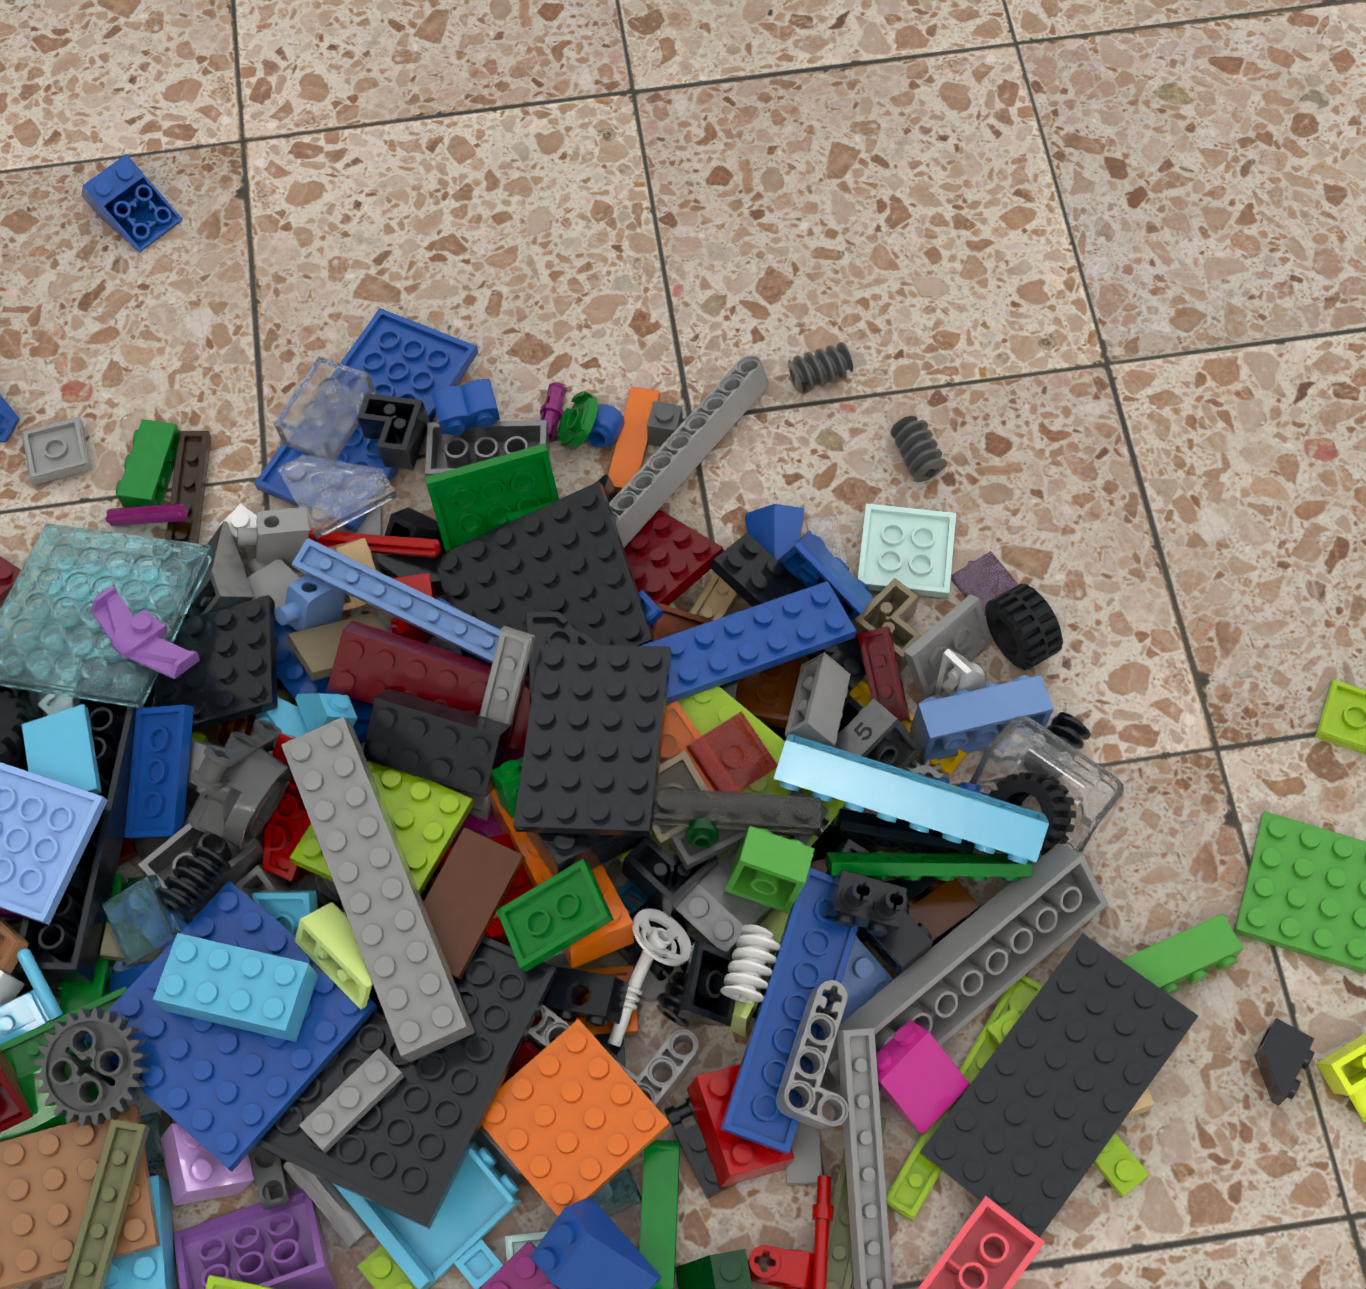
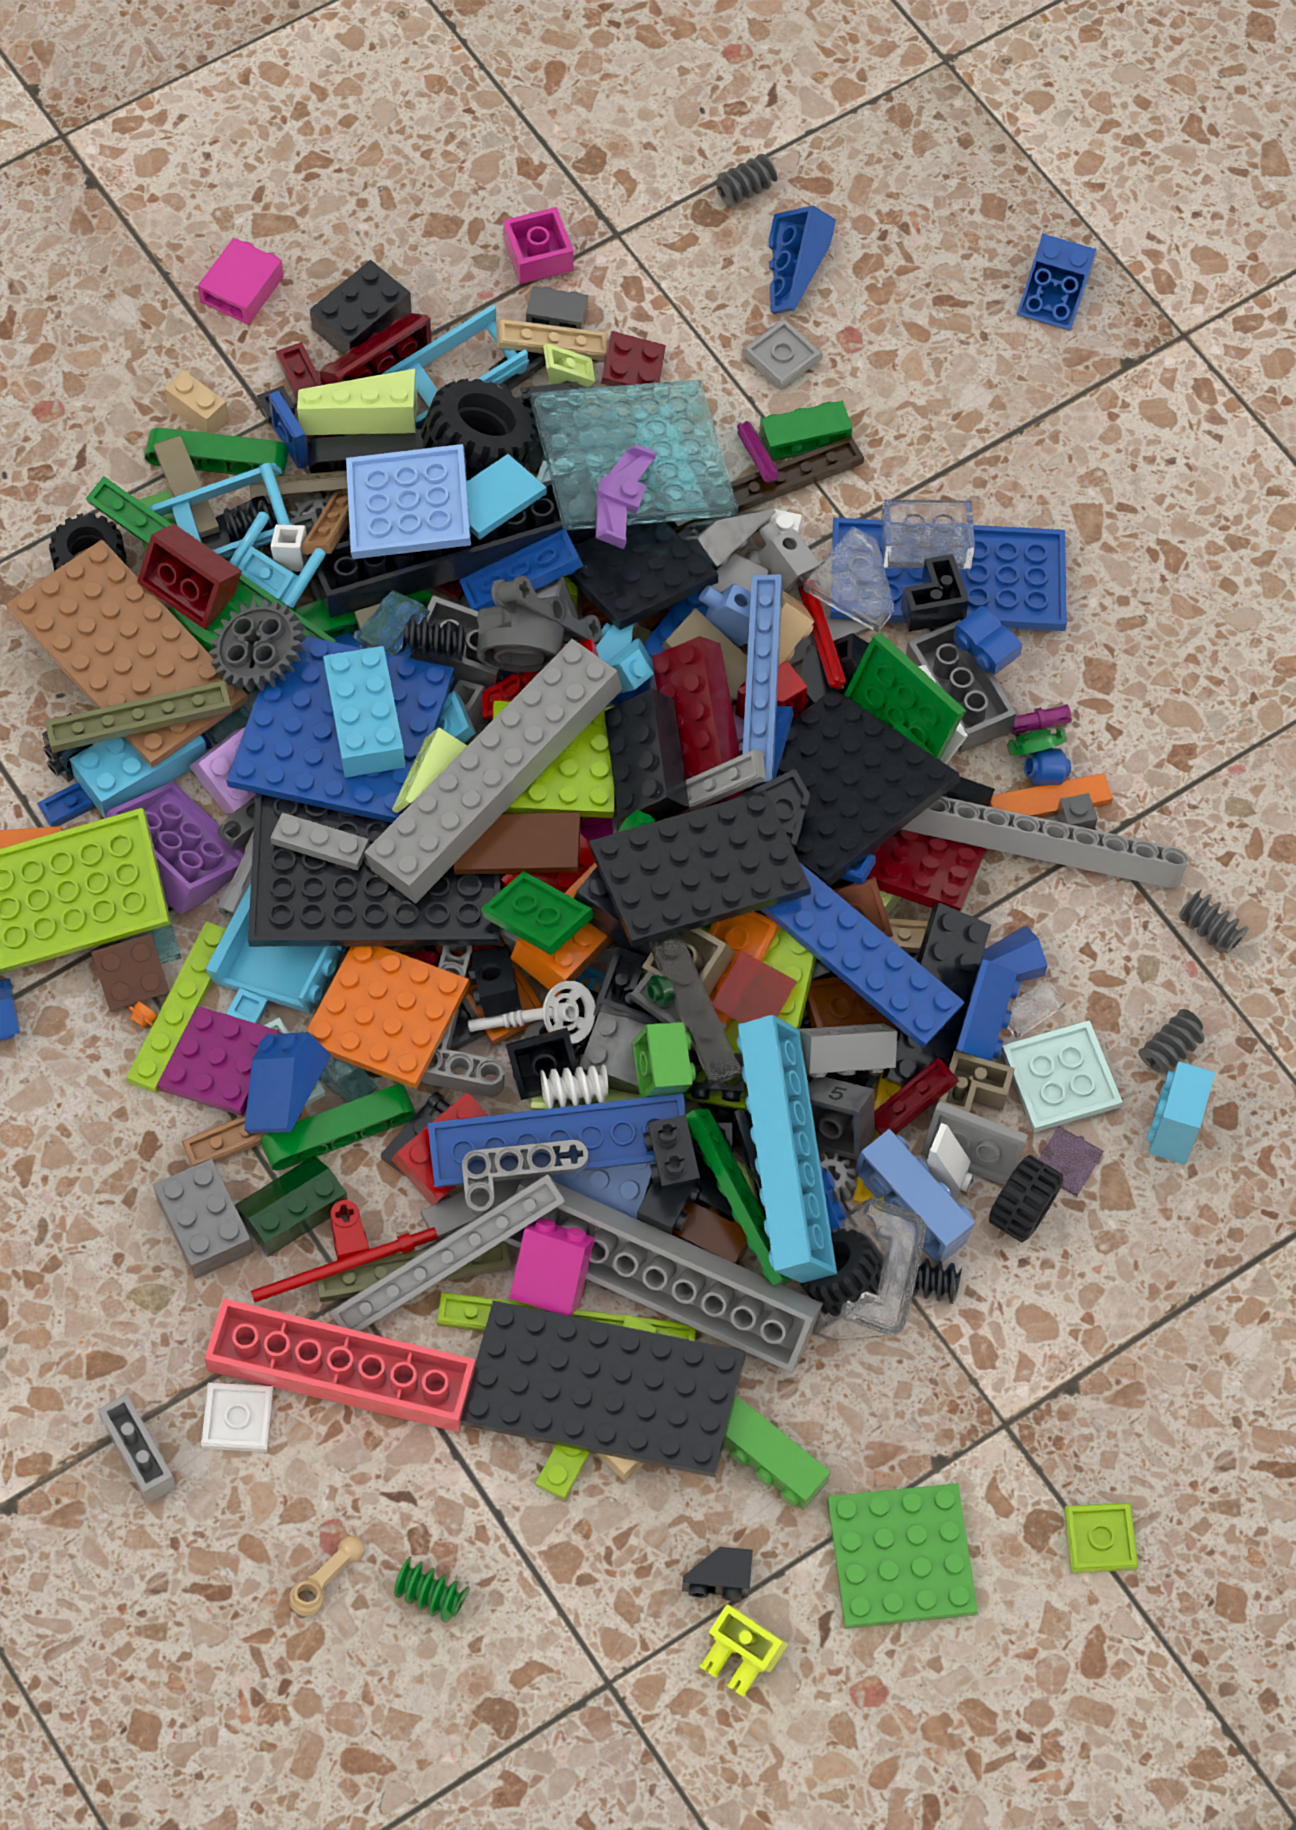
camera: 60 degrees right, 0 degrees up
(999, 466) = (1179, 1112): none -> medium azure brick

